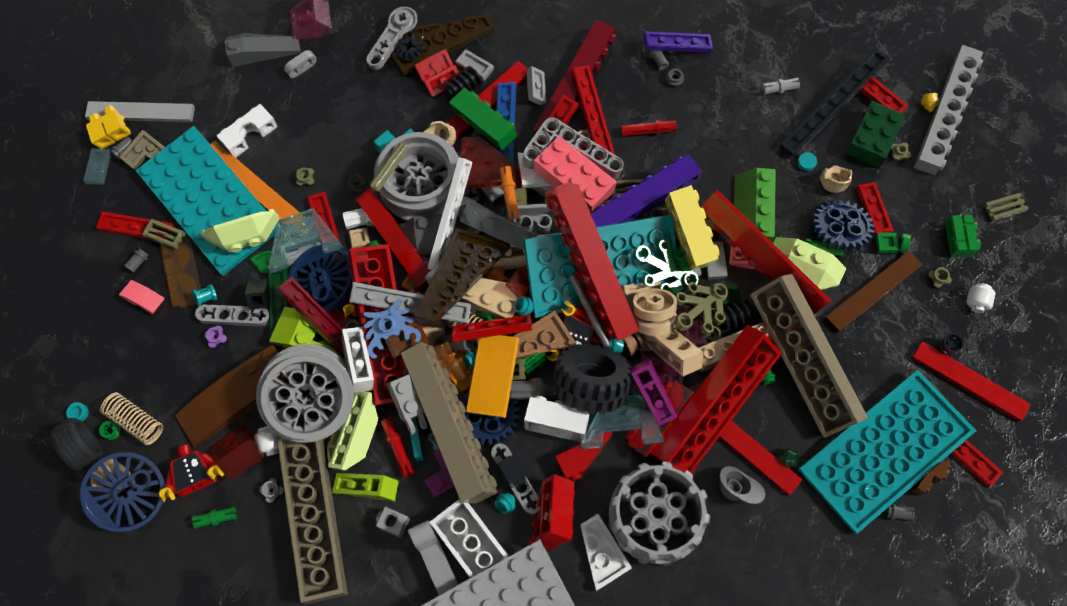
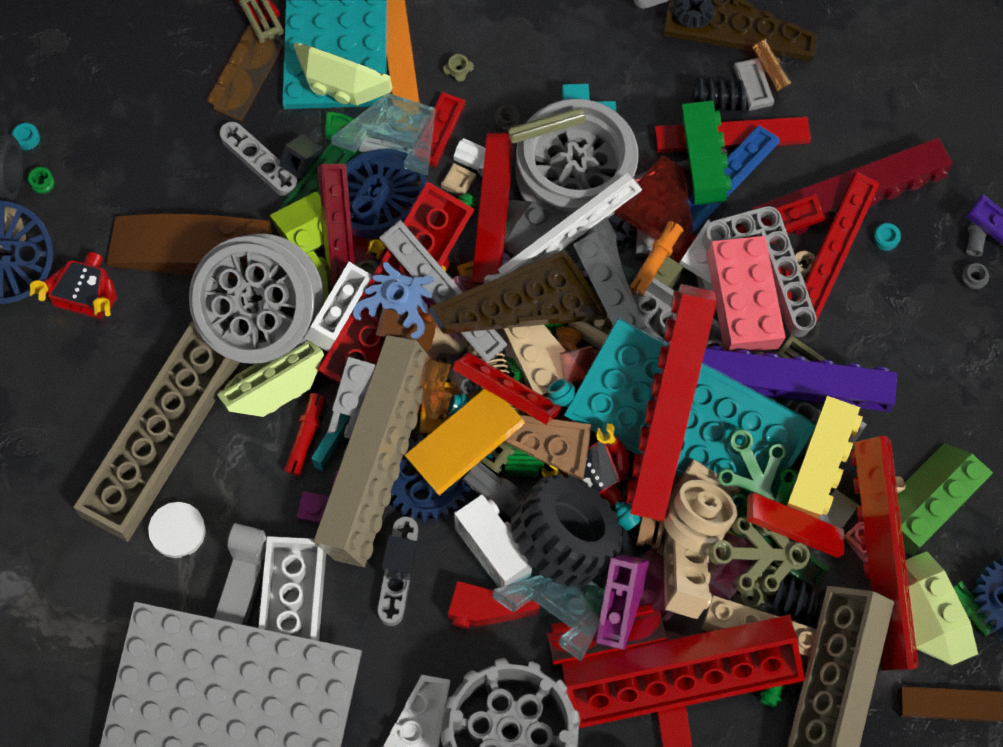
camera: 35 degrees right, 0 degrees up
(117, 405) = (70, 159): tan piece -> none
(136, 260) = (211, 22): dark grey pin -> none
(142, 296) = (185, 66): coral slope -> none
(204, 294) = (247, 113): teal bush -> none
(209, 335) = (222, 160): medium lavender plate -> none
(214, 517) = (66, 353): green pin -> none
(236, 452) = (142, 305): clear red slope -> none
(267, 441) = (178, 317): white head -> none
(271, 484) = (138, 366): light grey plate -> none
(366, 486) = (238, 447): lime slope -> none
(370, 563) = (176, 529): none -> white tile
(401, 522) = (242, 514): light grey brick -> none
(435, 71) = (702, 58): red slope -> none
(442, 130) = (646, 133): tan hair -> none
(476, 47) = (771, 64): none -> clear orange pin
(505, 503) = (365, 586): teal plate -> none
(536, 85) = (801, 161): light grey plate -> none
(555, 513) = (404, 640): red wedge -> none
(589, 310) = (629, 454): flat silver bar -> none
(613, 92) = (886, 236): none -> teal tile
(648, 128) = (893, 312): red pin -> none
(705, 276) = (795, 525): none -> red tile

